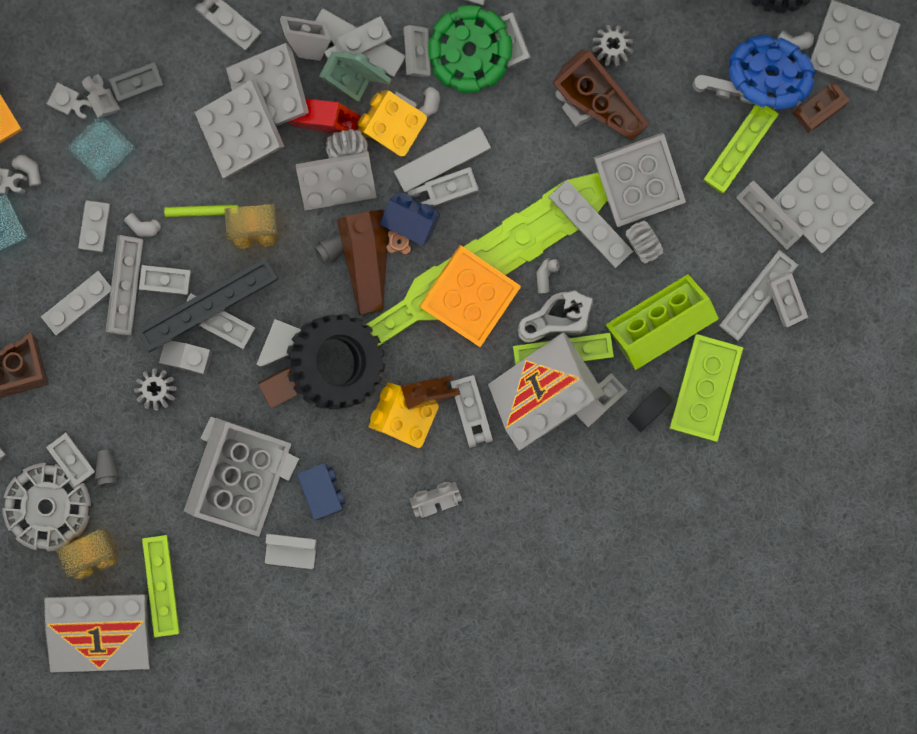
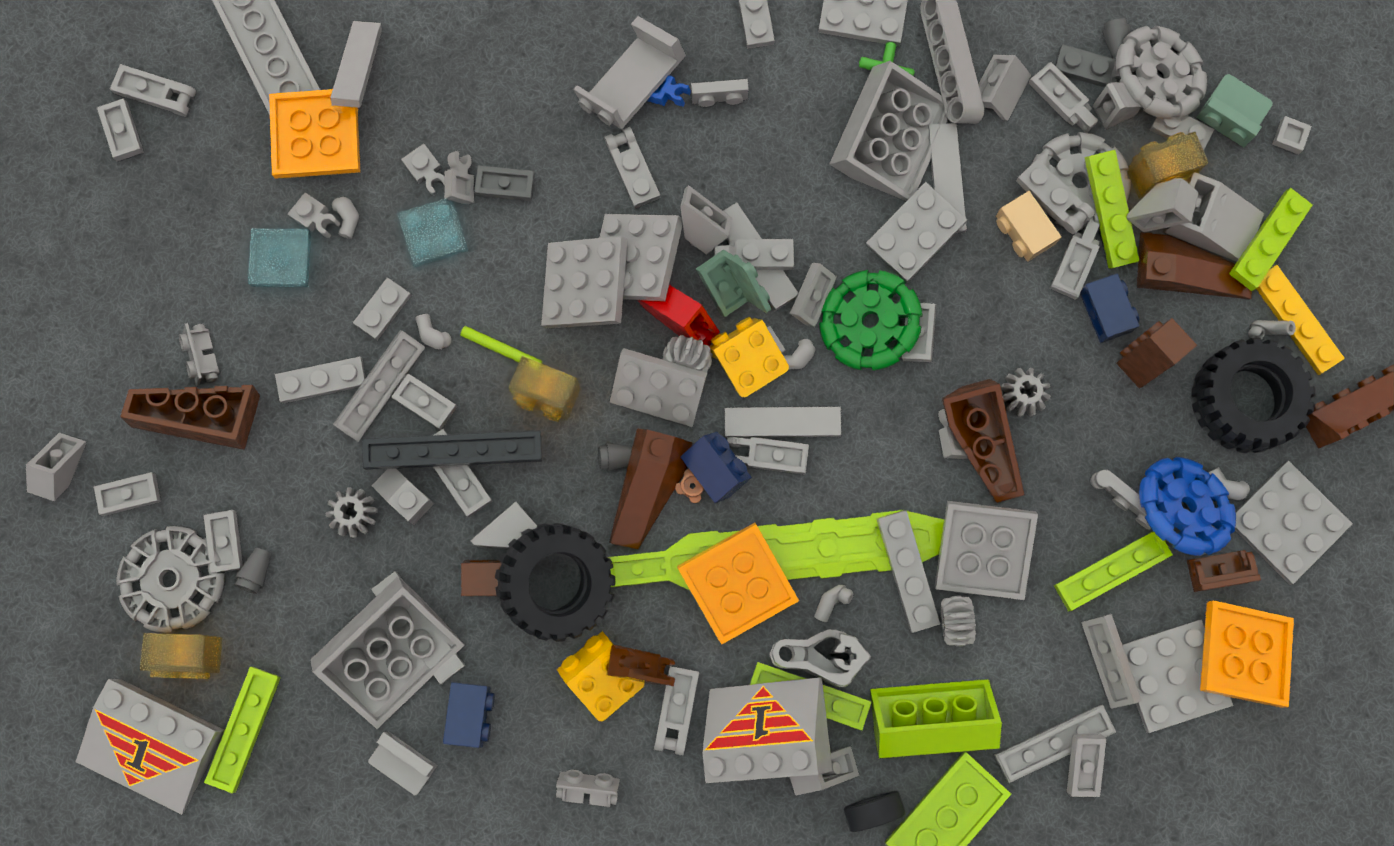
camera: 25 degrees right, 5 degrees down
(865, 160) = (1247, 654): none -> light orange plate

